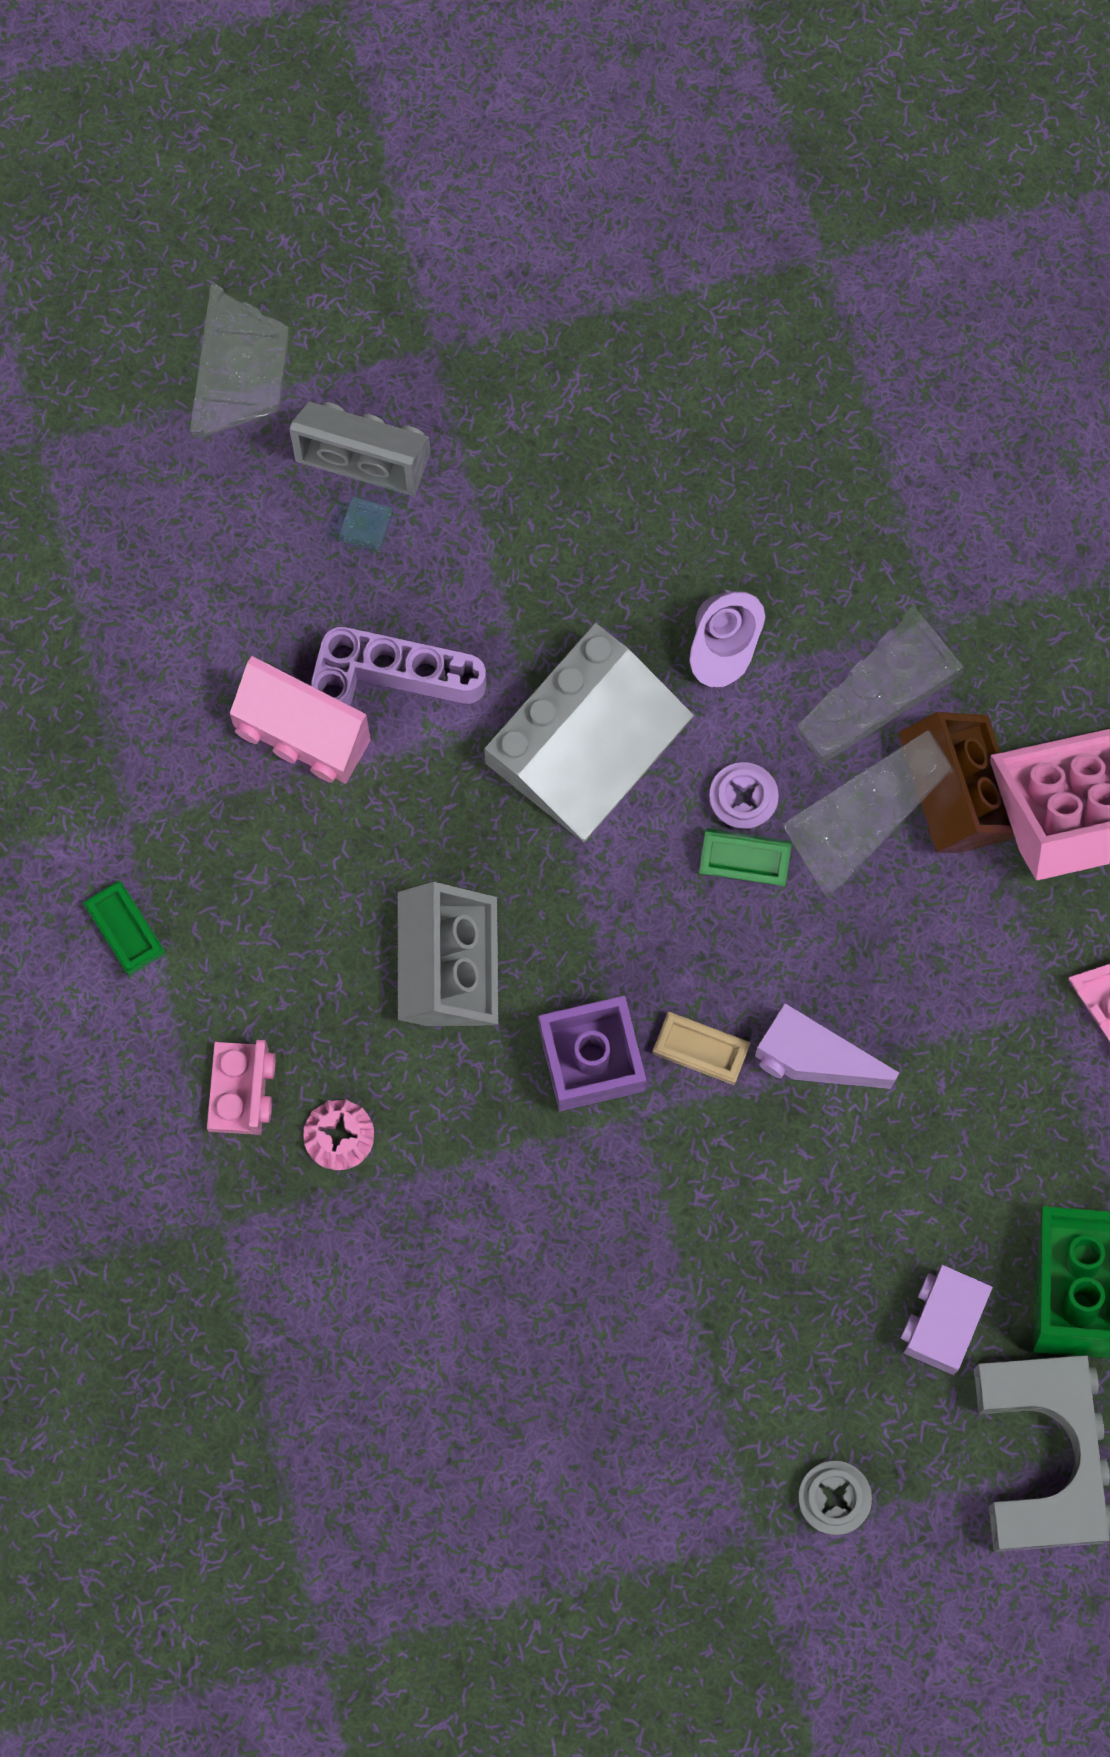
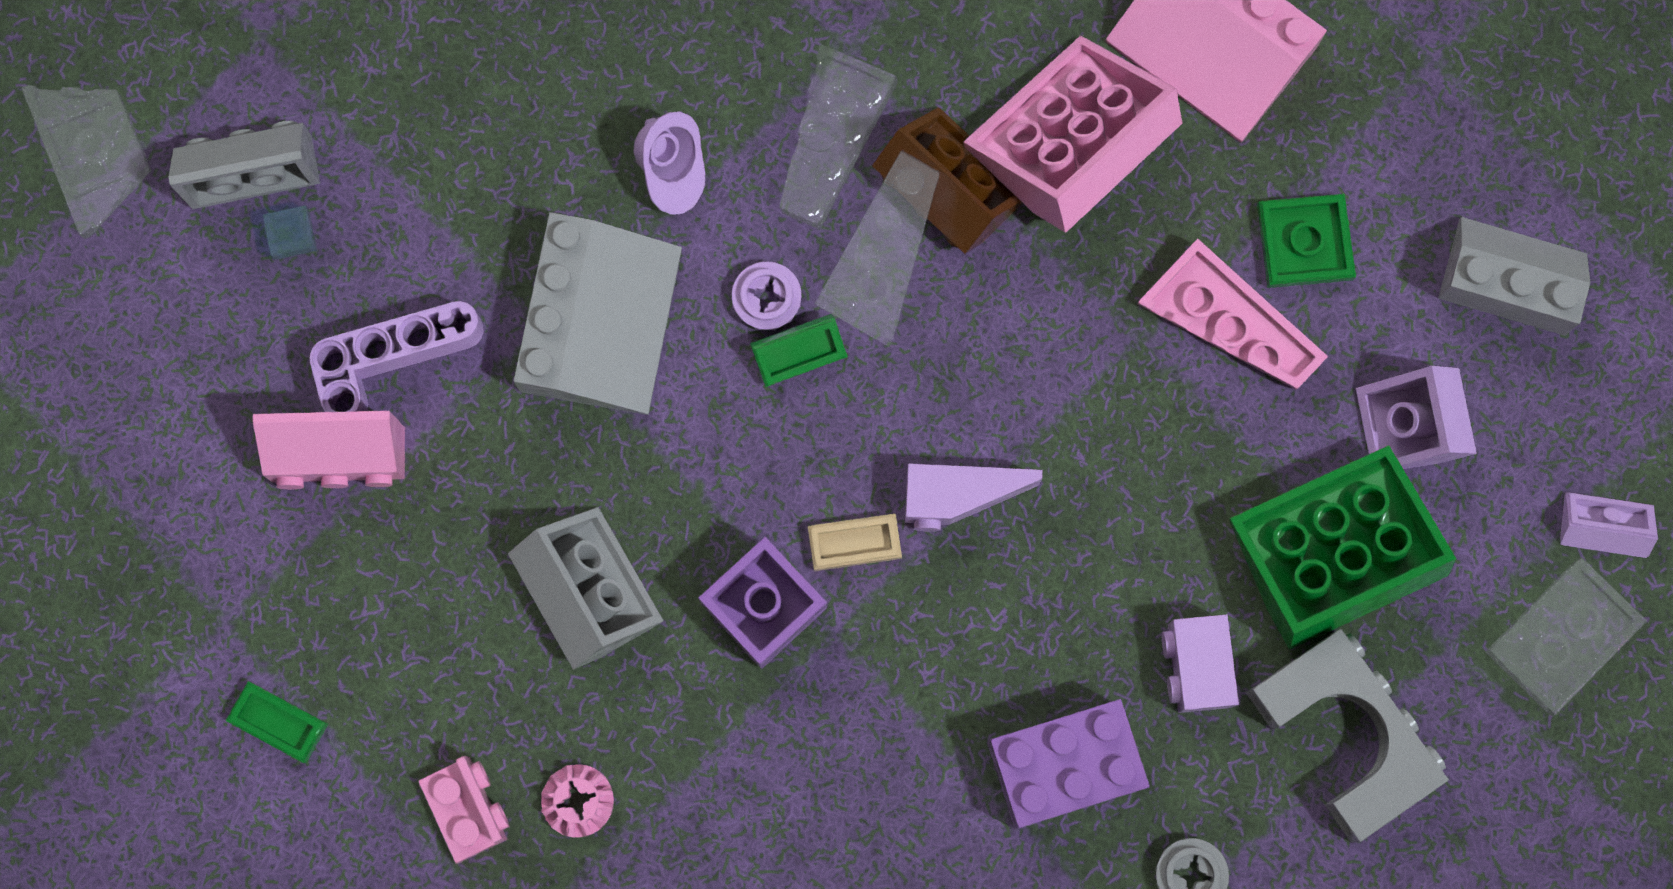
camera: 30 degrees left, 5 degrees up
(779, 1339) = (1068, 764): none -> medium lavender brick

